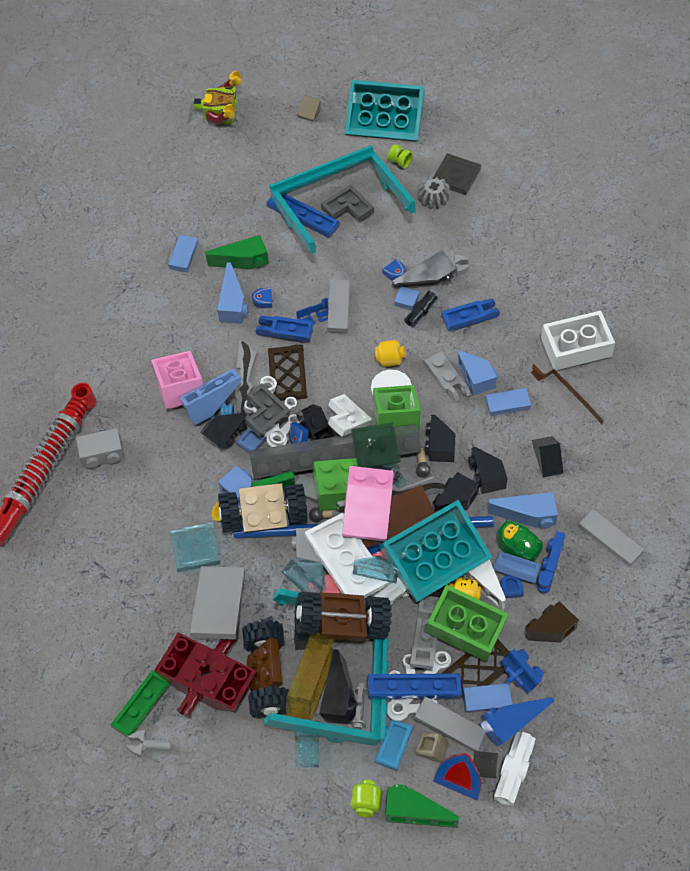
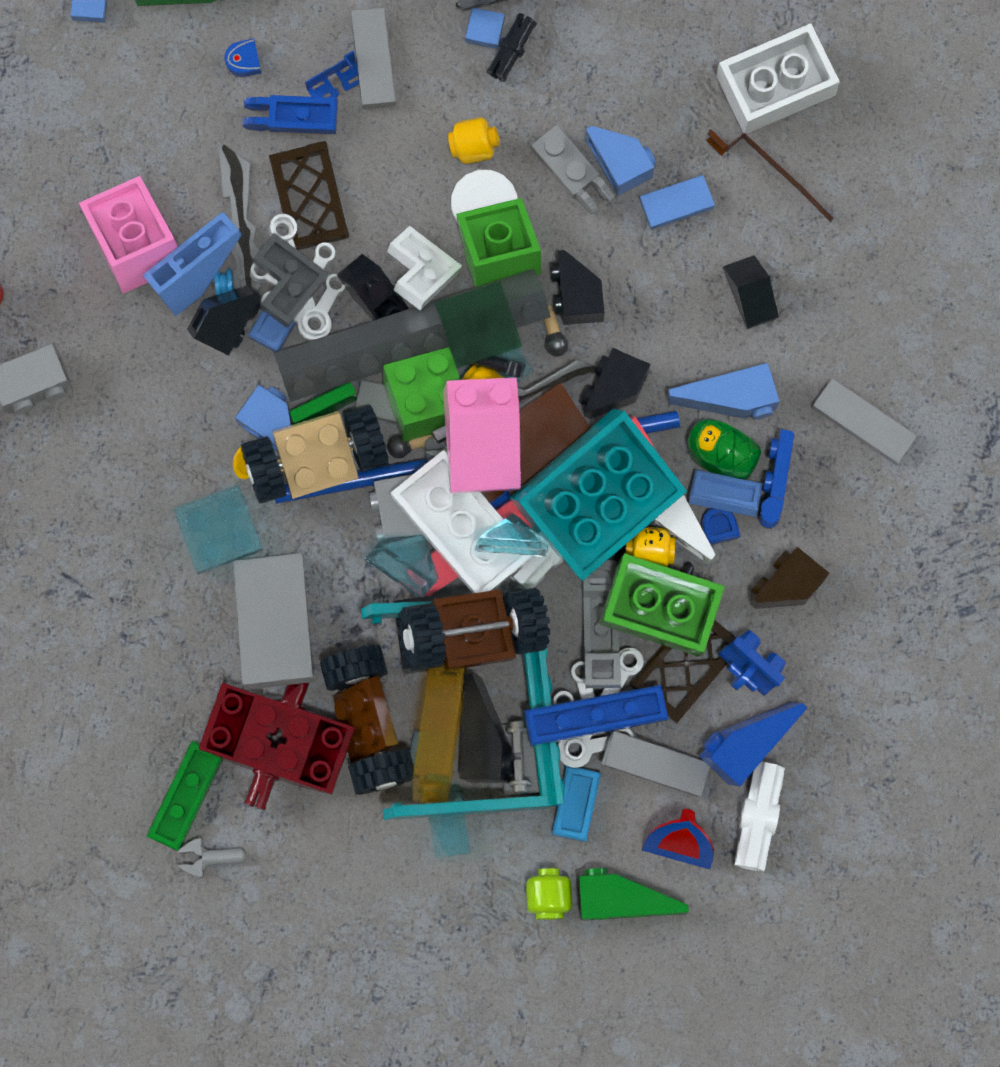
camera: 10 degrees left, 20 degrees up
(231, 301) = (193, 74): medium blue slope -> none
(298, 433) = (347, 310): blue tile -> none
(432, 747) = (633, 799): dark tan slope -> none
(469, 314) = (592, 47): blue hinge -> none
(486, 697) = (705, 712): medium blue tile -> none
(486, 763) = (714, 814): clear smoke tile -> none
(488, 471) = (661, 335): black slope -> none

